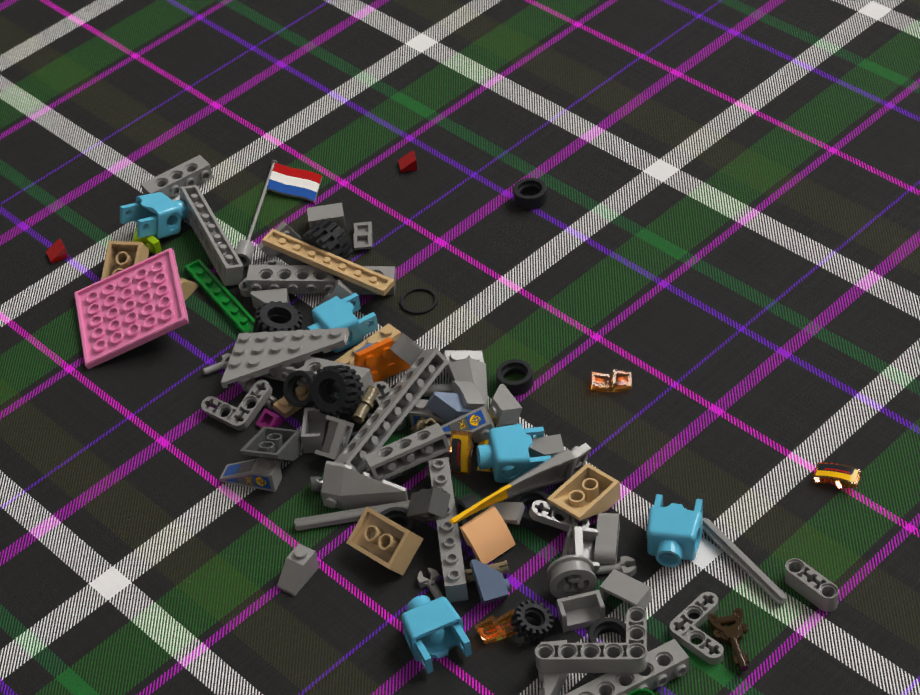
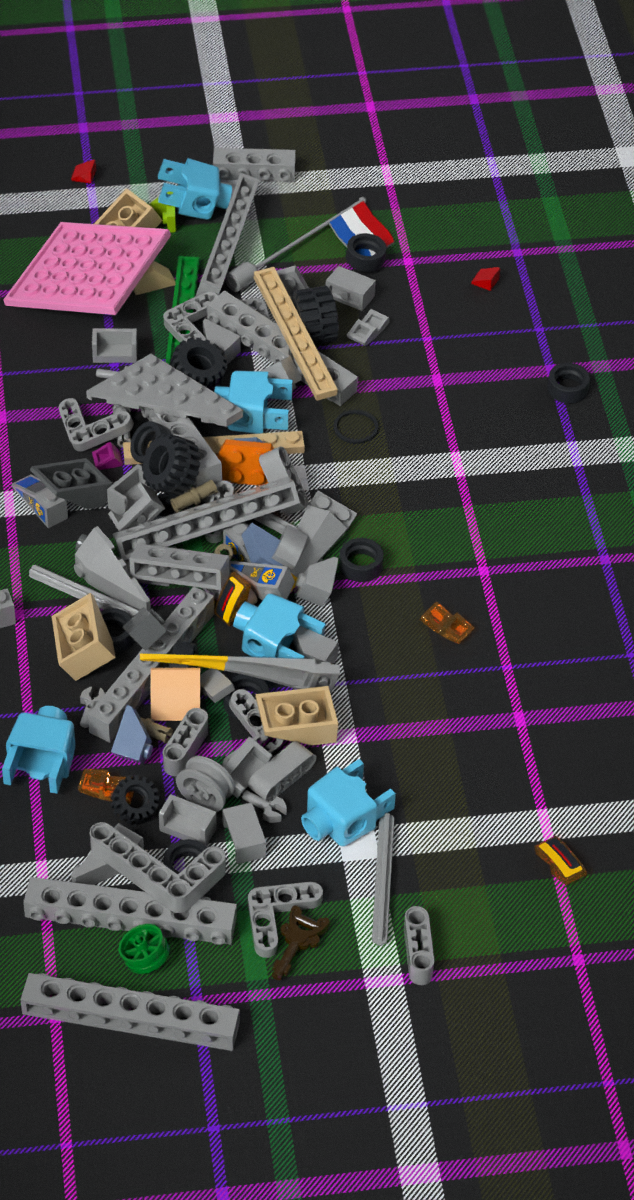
camera: 30 degrees right, 5 degrees up
(201, 346) = (114, 345): none -> light grey panel
(235, 301) = (178, 319): none -> light grey beam
(317, 198) = (370, 242): none -> black tyre
(527, 574) = (185, 741): none -> light grey beam

